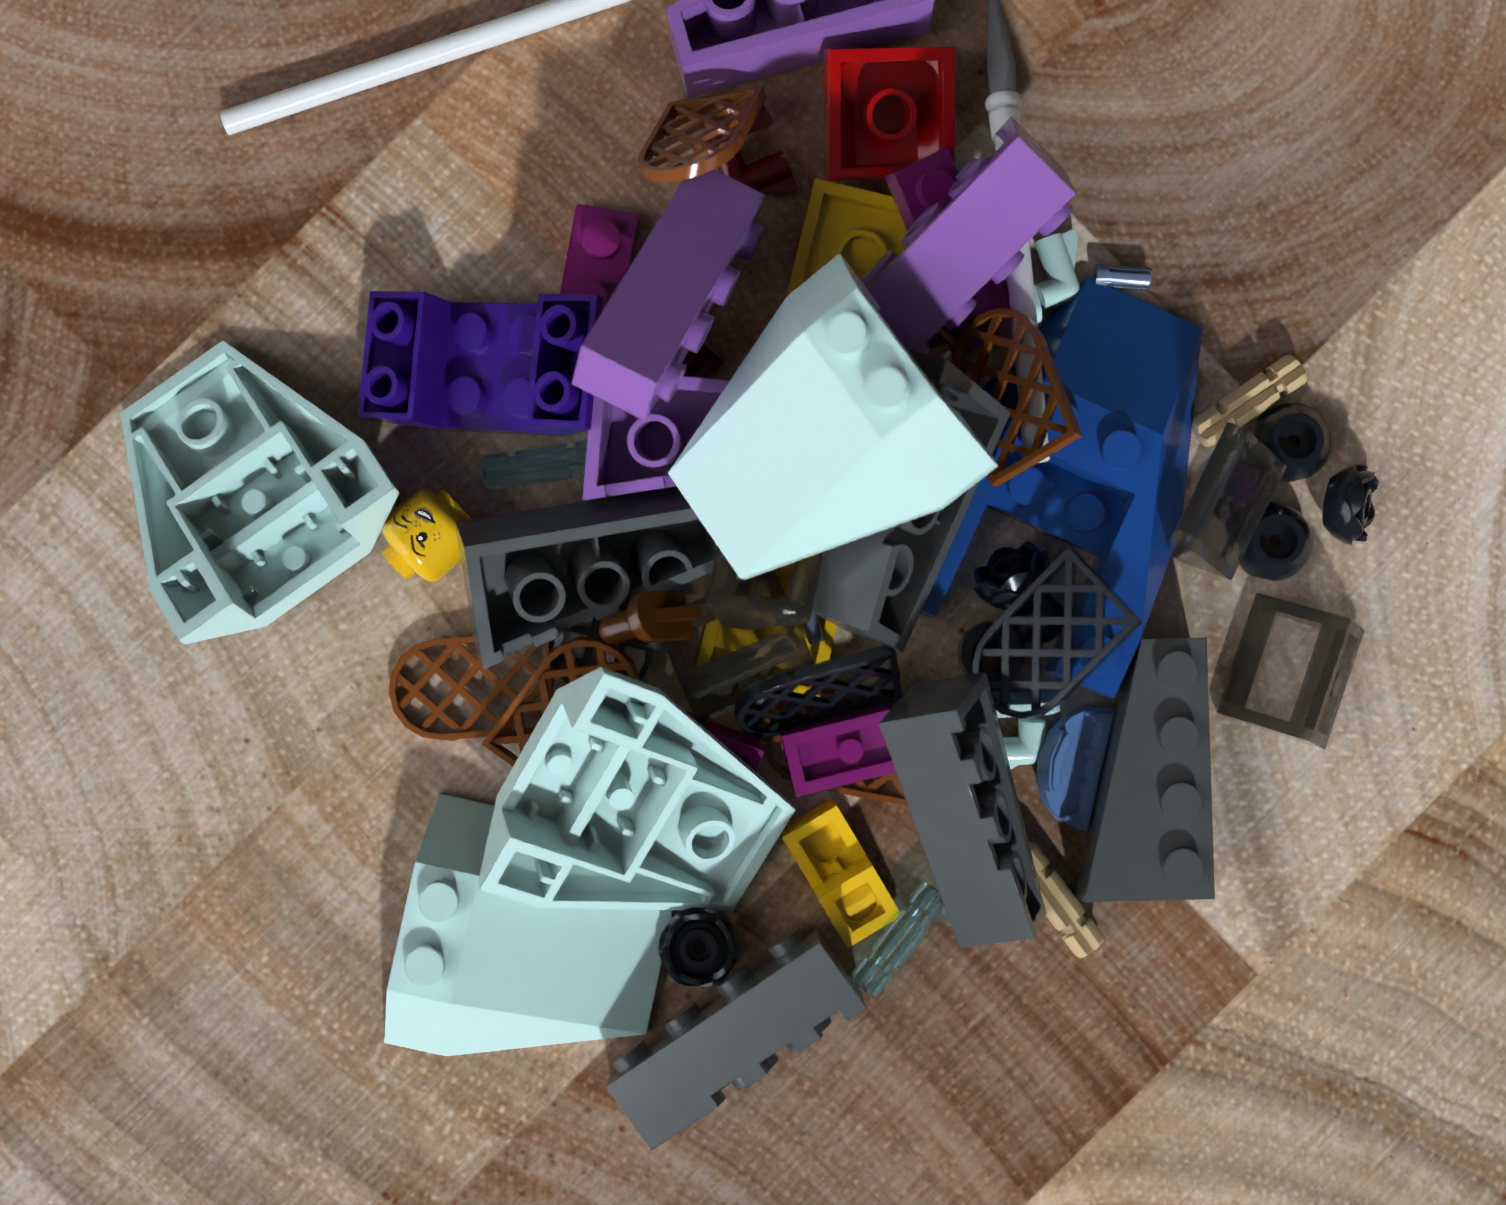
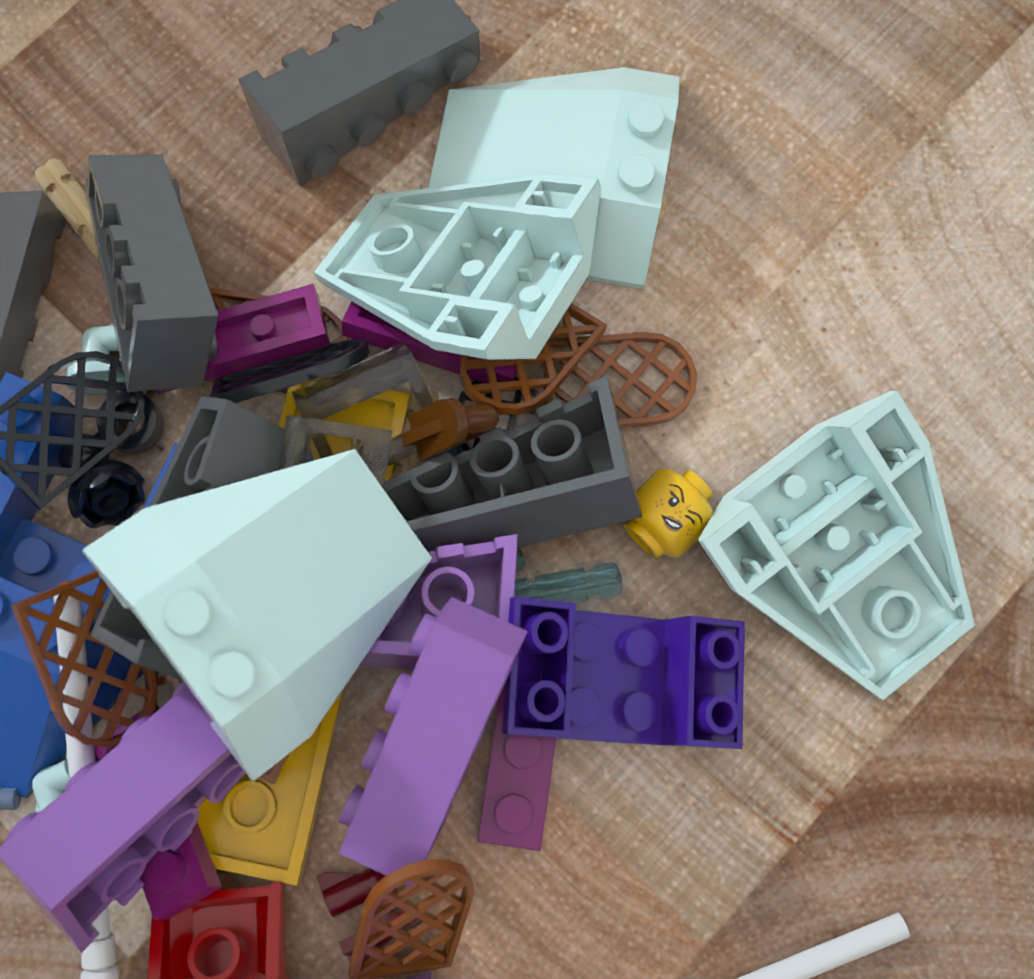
camera: 175 degrees right, 10 degrees down
(694, 967) = (396, 142): black plate -> none
(839, 872) = (275, 226): yellow slope -> none
(898, 940) = (221, 171): clear light blue axle -> none
(1072, 764) = (57, 324): medium blue tile -> none

